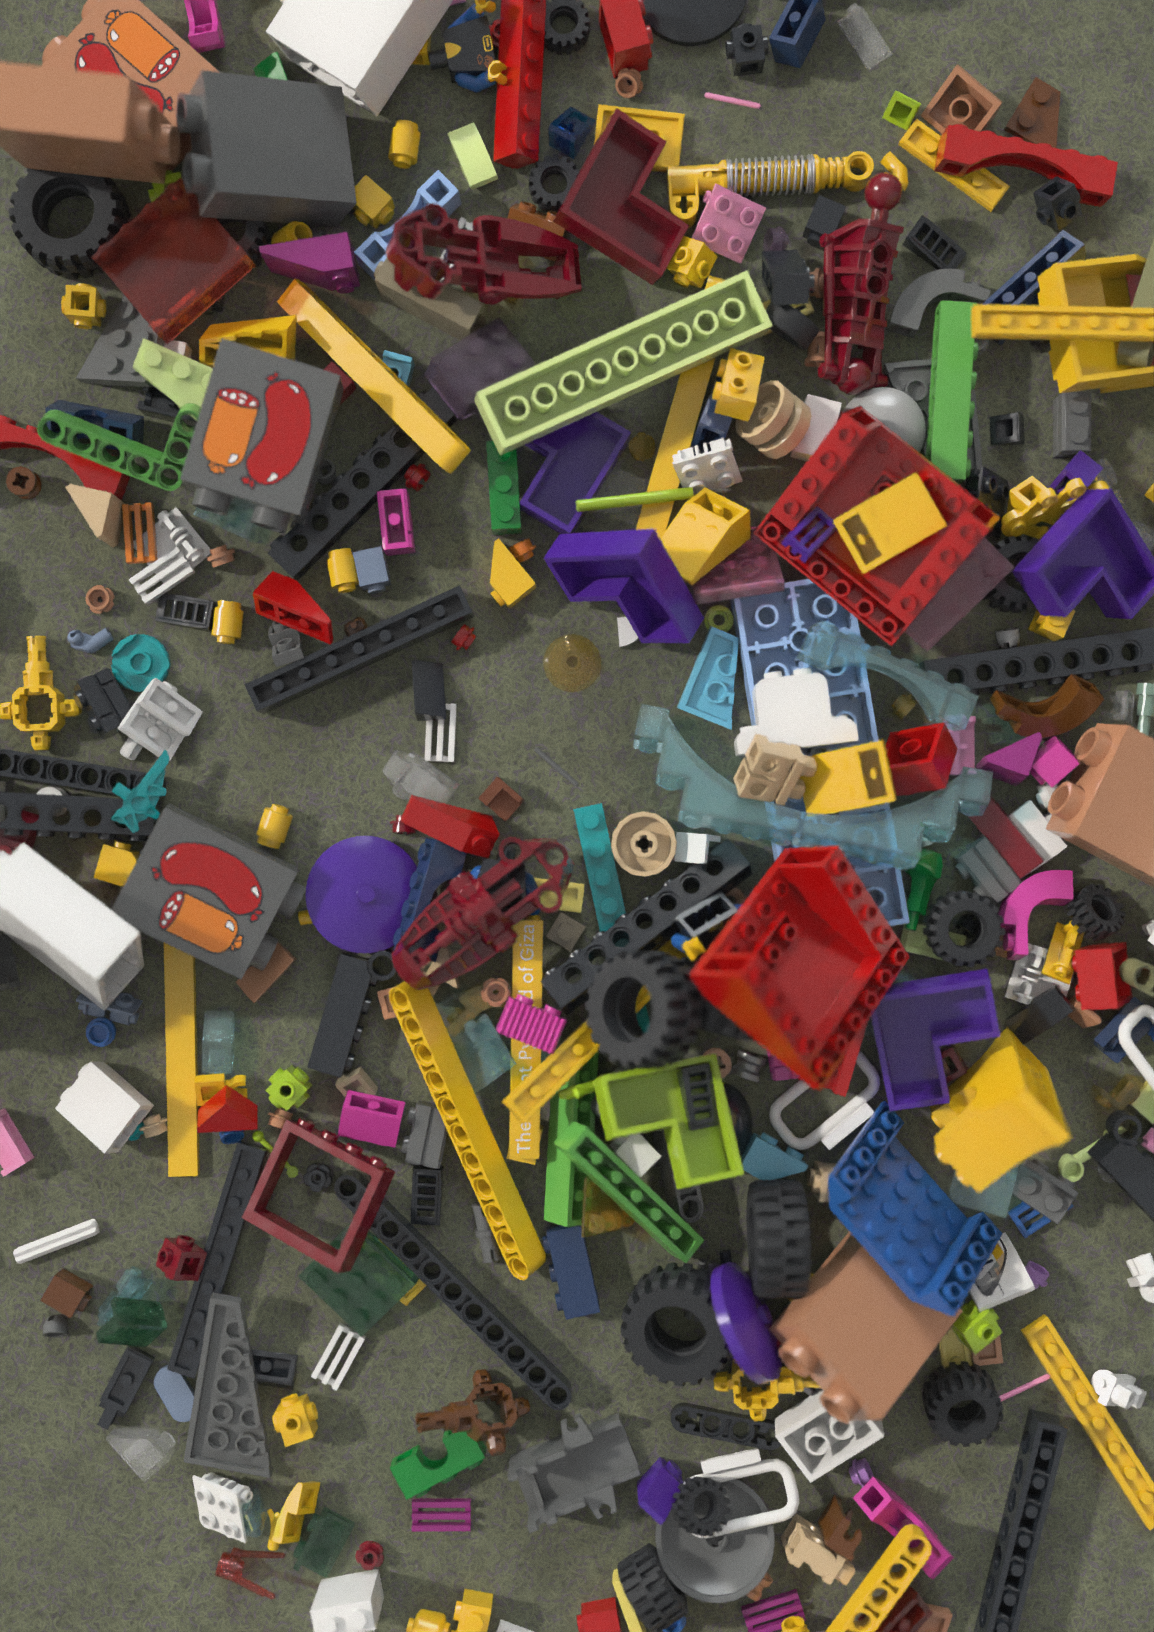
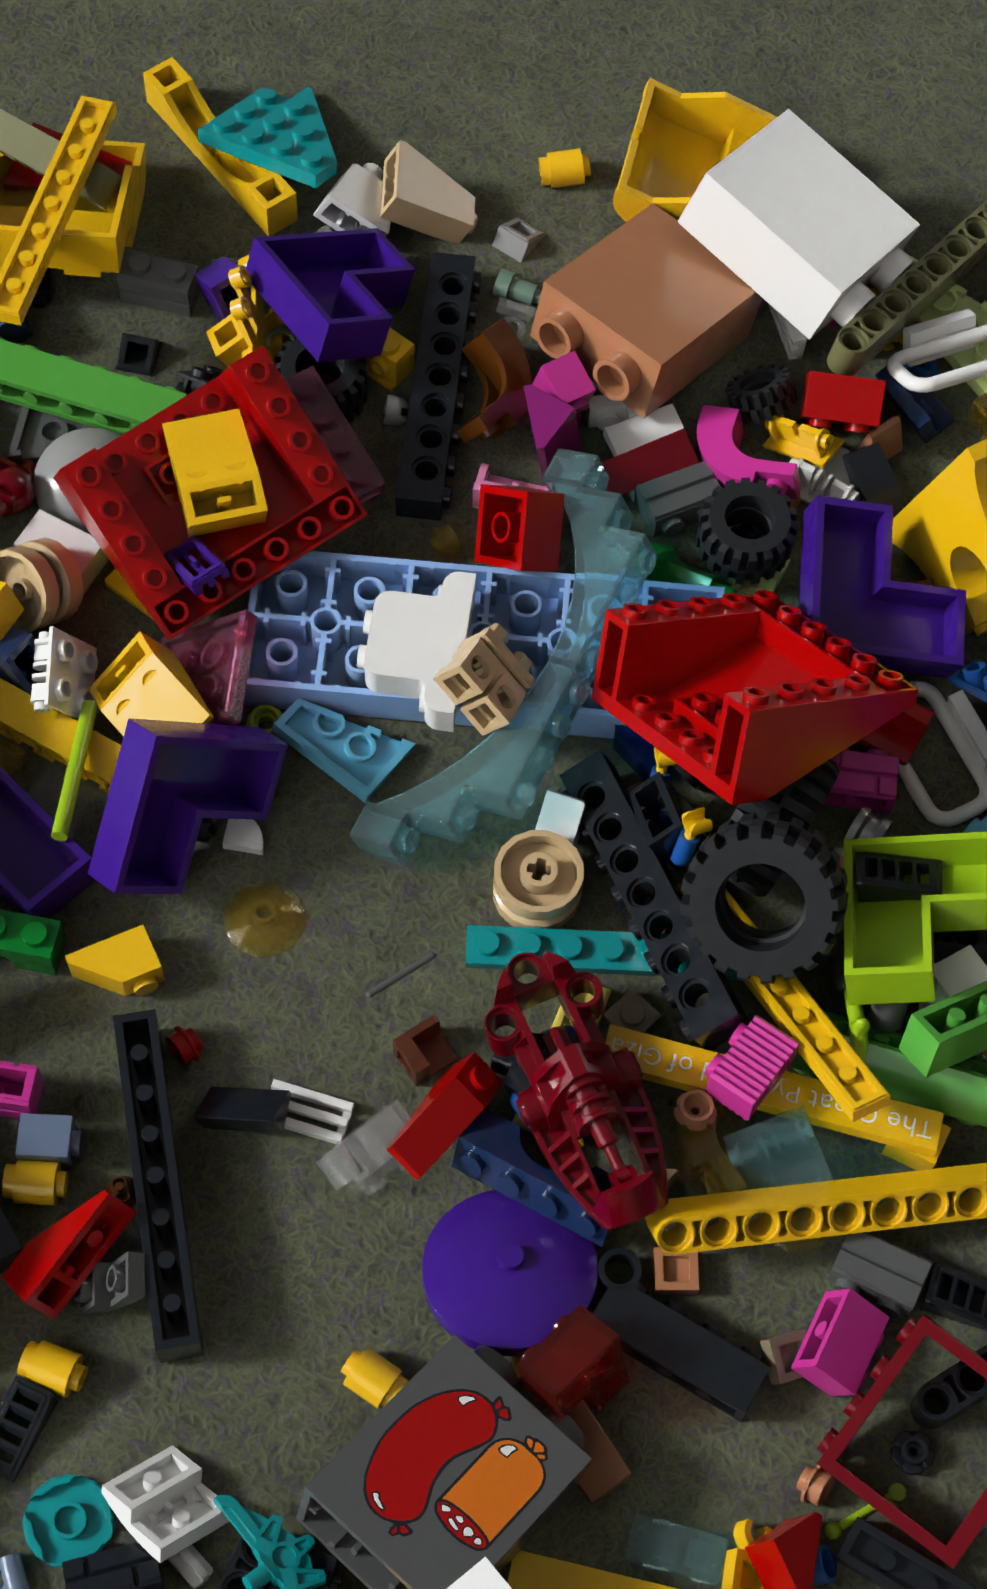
camera: 80 degrees left, 25 degrees down
(296, 1080) = (763, 1468): lime brick -> none
(303, 951) = (575, 1363): none -> clear red brick
(399, 827) = (422, 1193): dark red plate -> none
(522, 550) = (89, 934): orange plate -> none
(849, 779) = (524, 591): yellow slope -> none
(939, 699) = (450, 485): clear light blue arch -> none

